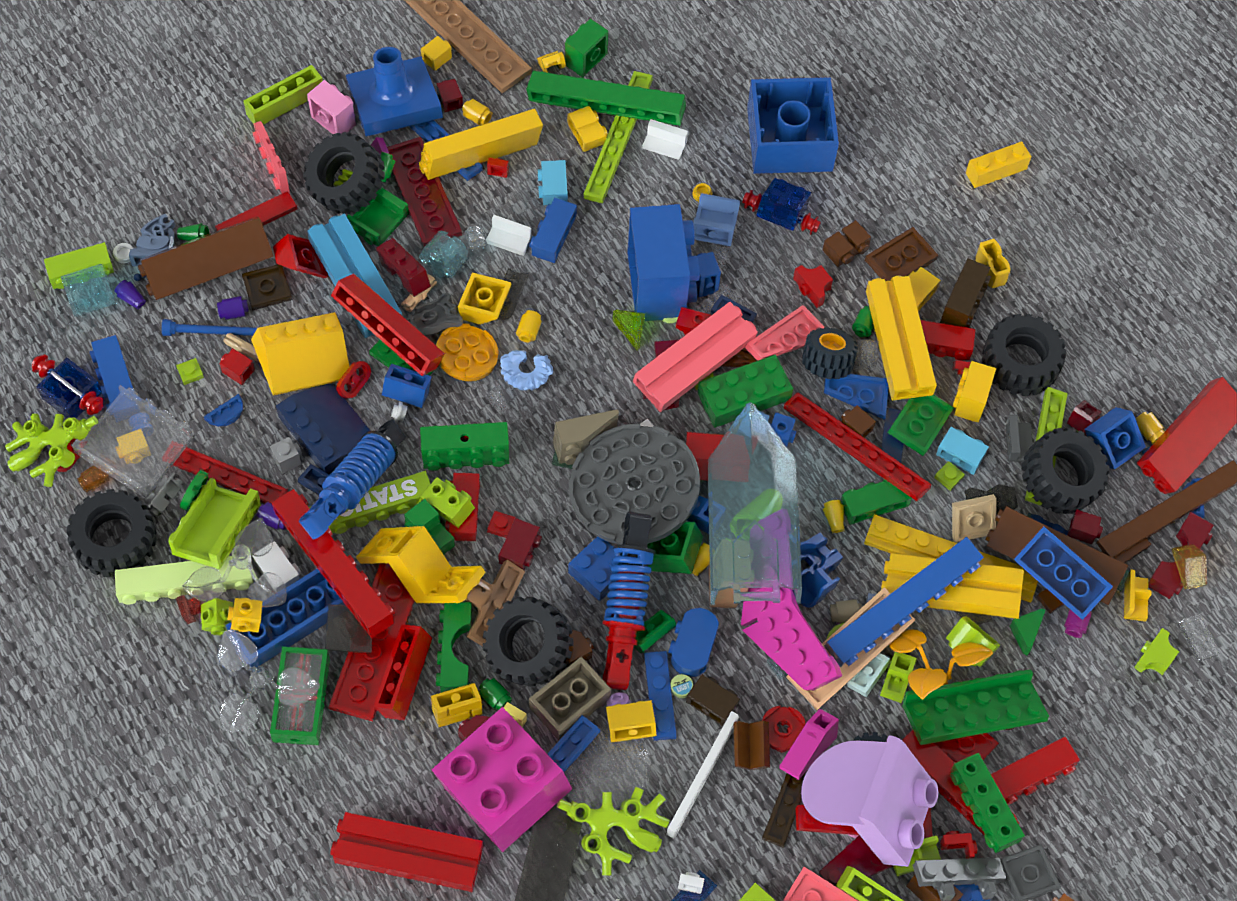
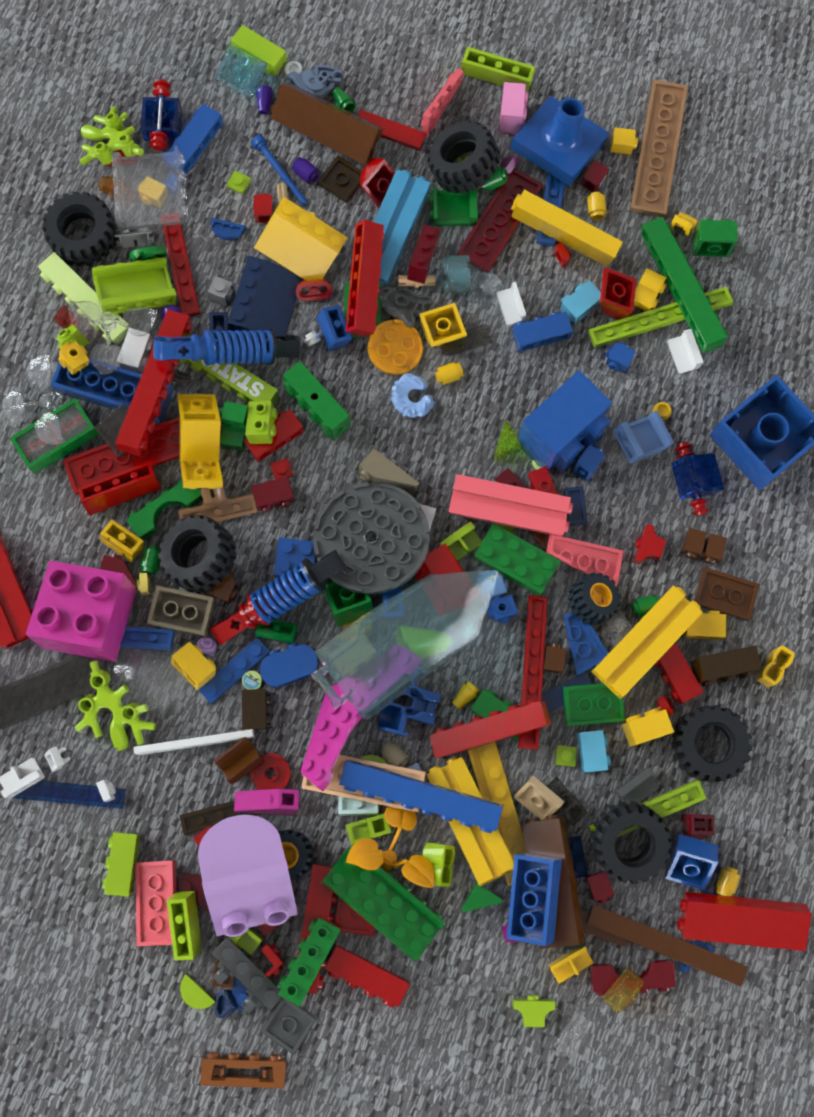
camera: 55 degrees right, 15 degrees up
(574, 149) = (617, 294): none -> red slope
(628, 189) = (619, 357): none -> blue brick
(692, 420) = (462, 541): none -> lime panel
(885, 509) = (490, 729): none -> red brick

